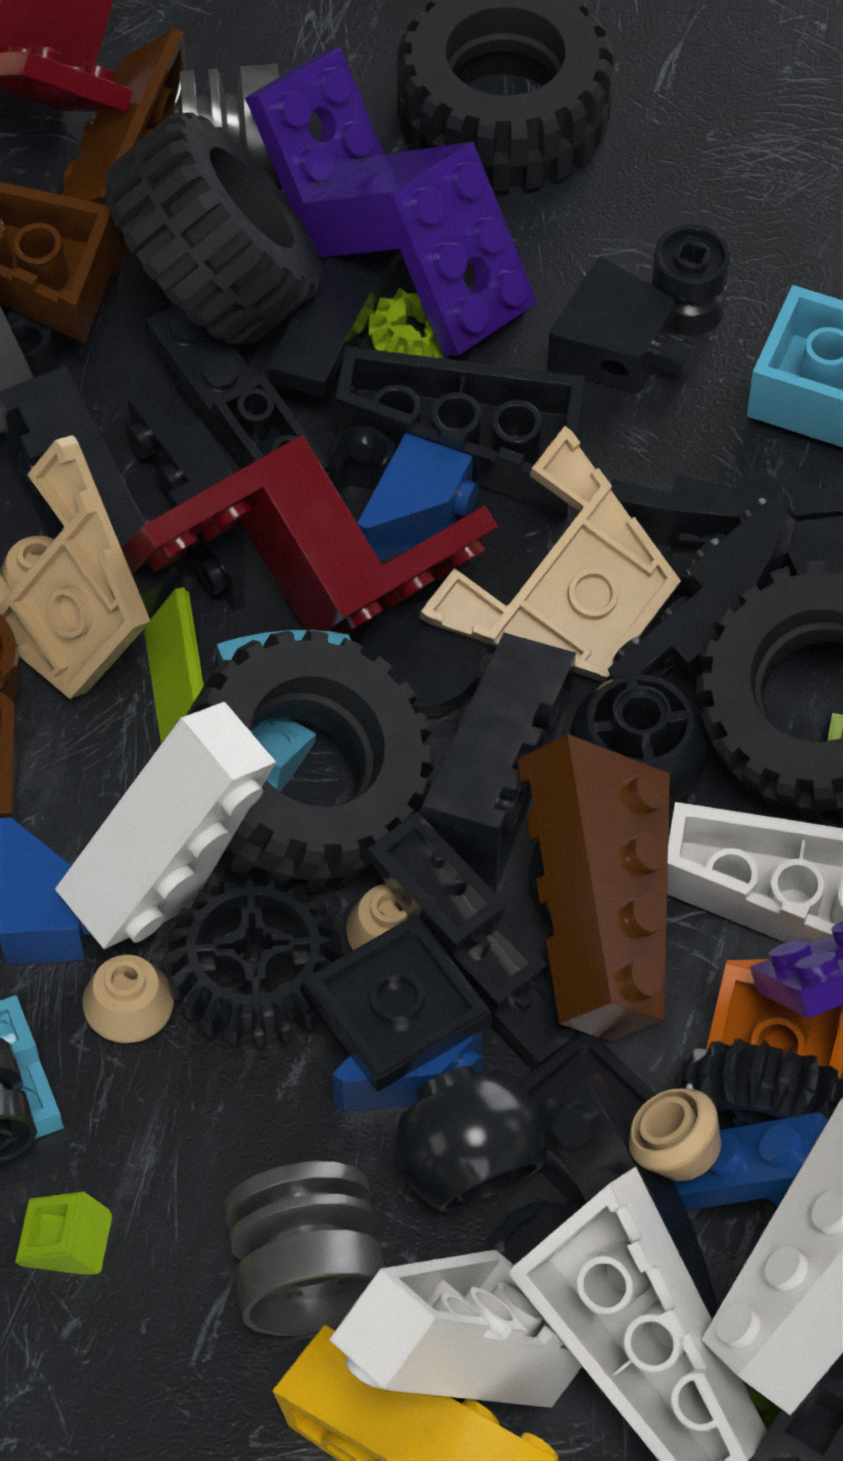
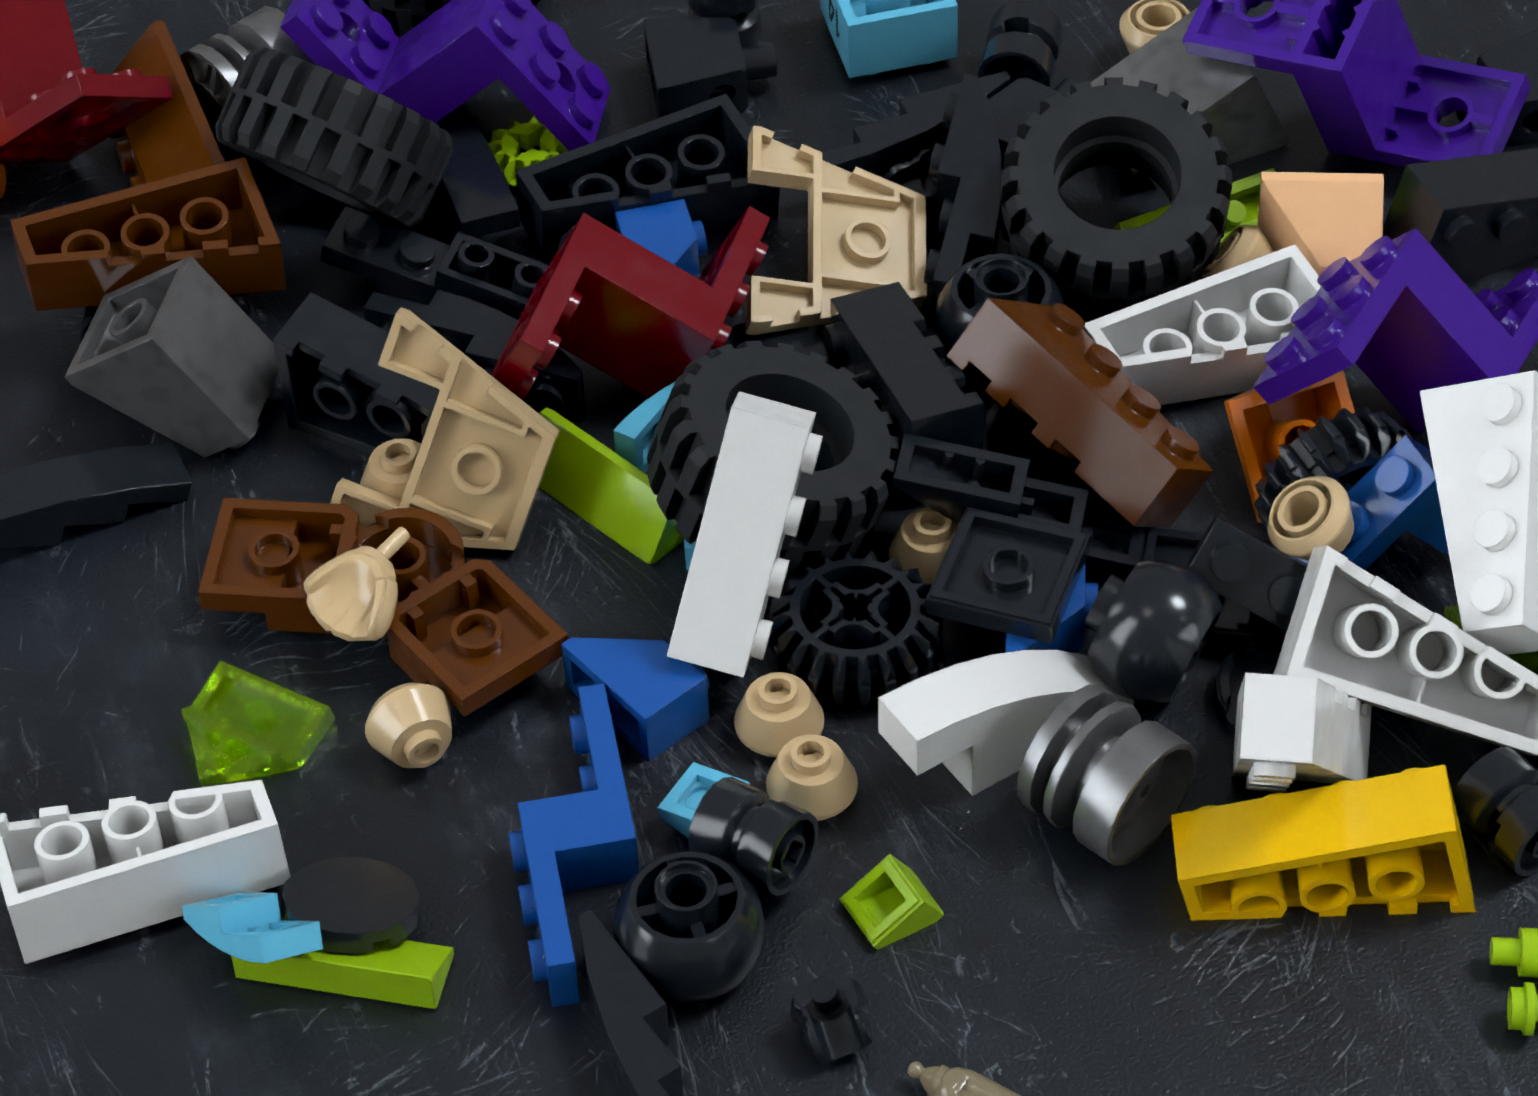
camera: 35 degrees left, 10 degrees down
(100, 1076) = (813, 776): none -> tan cone
(271, 1118) = (981, 712): none -> white slope

